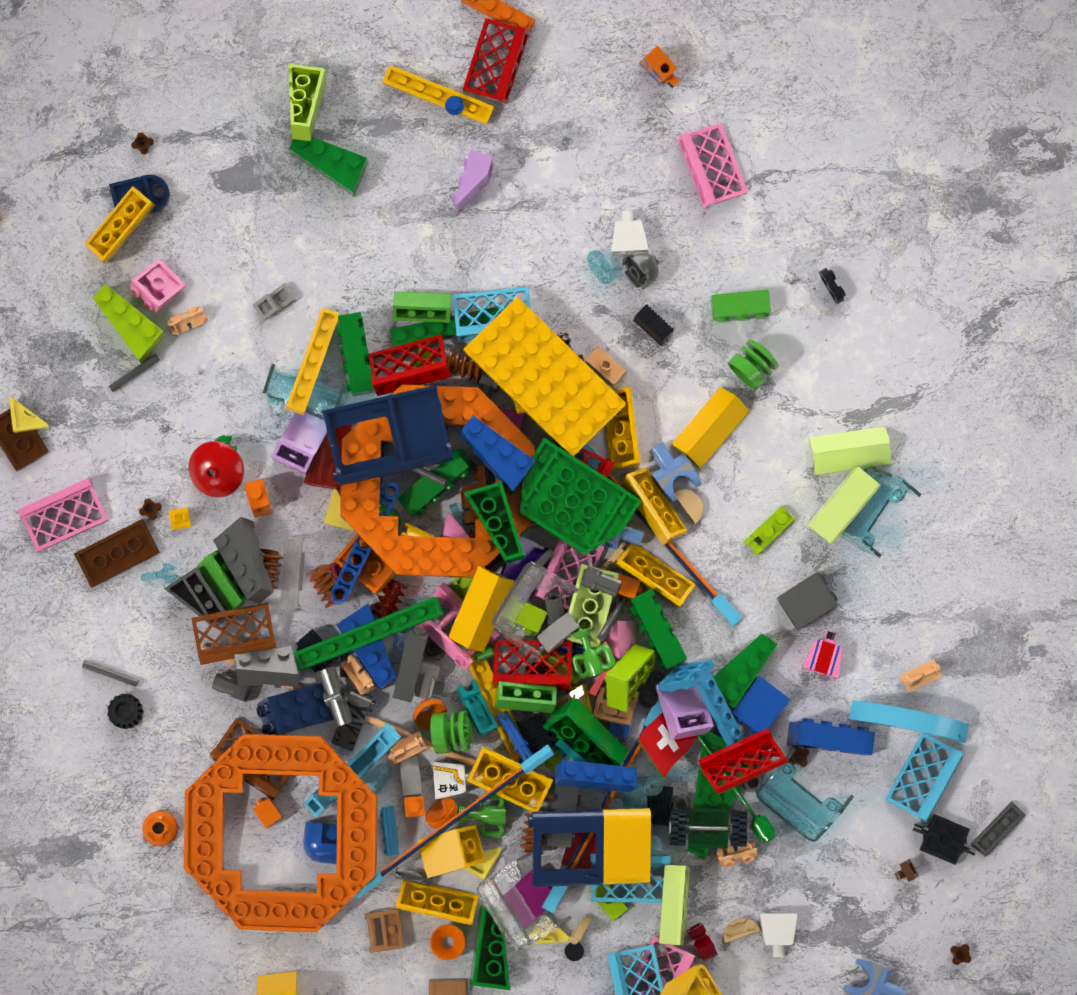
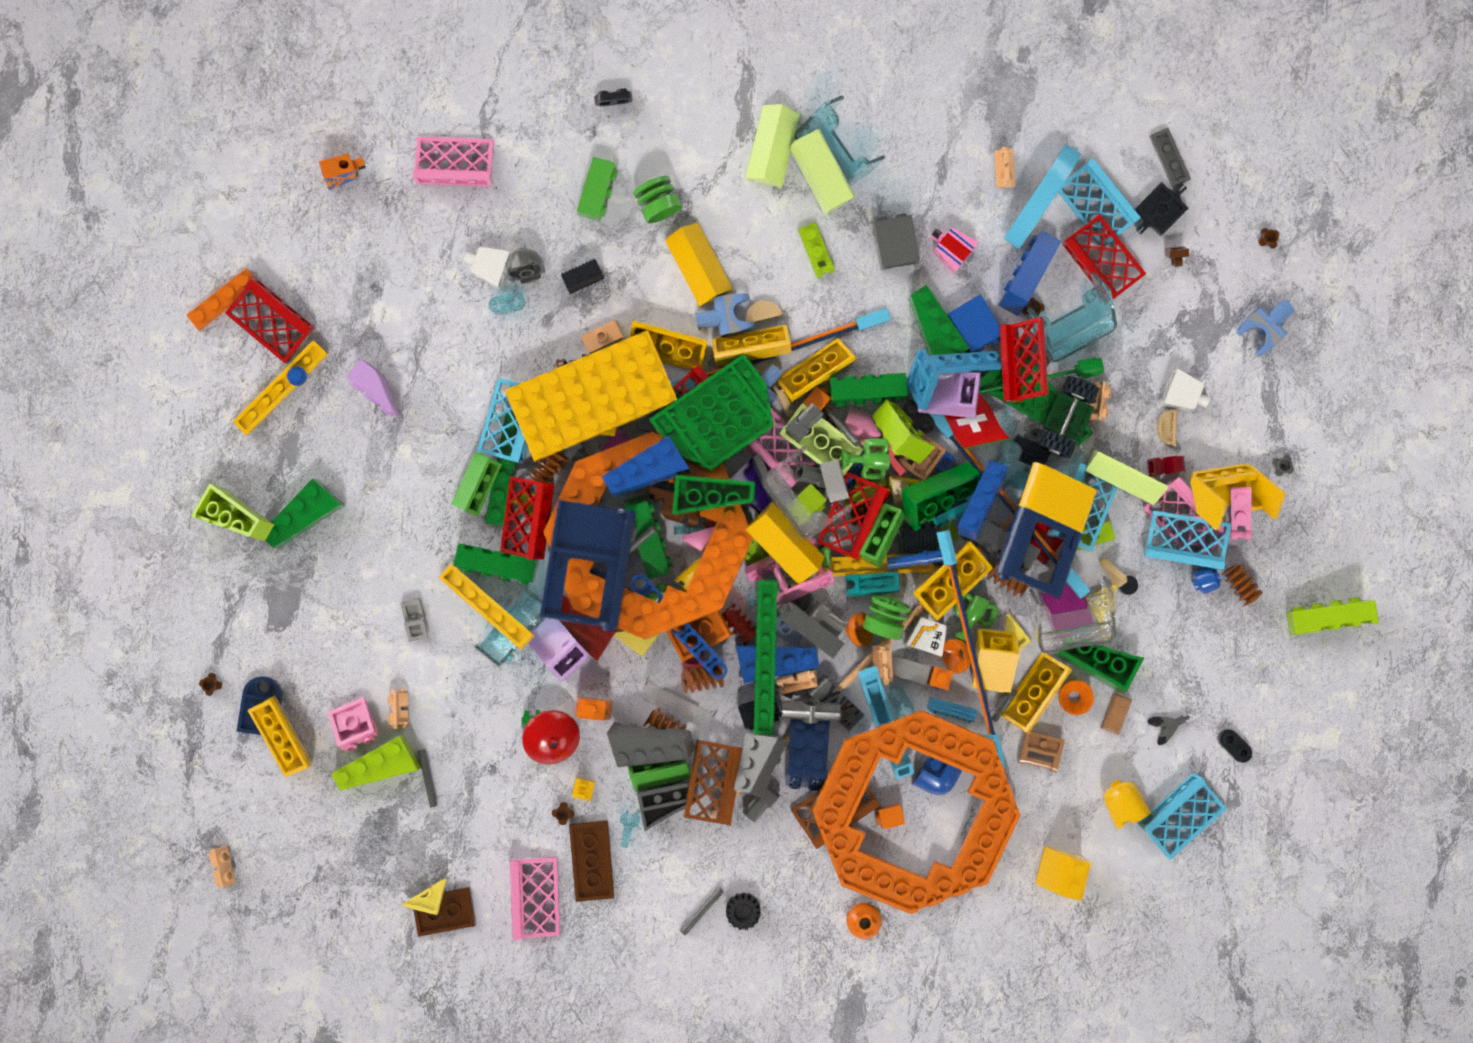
camera: 70 degrees left, 5 degrees up
(859, 795) = (1088, 265): none -> red fence

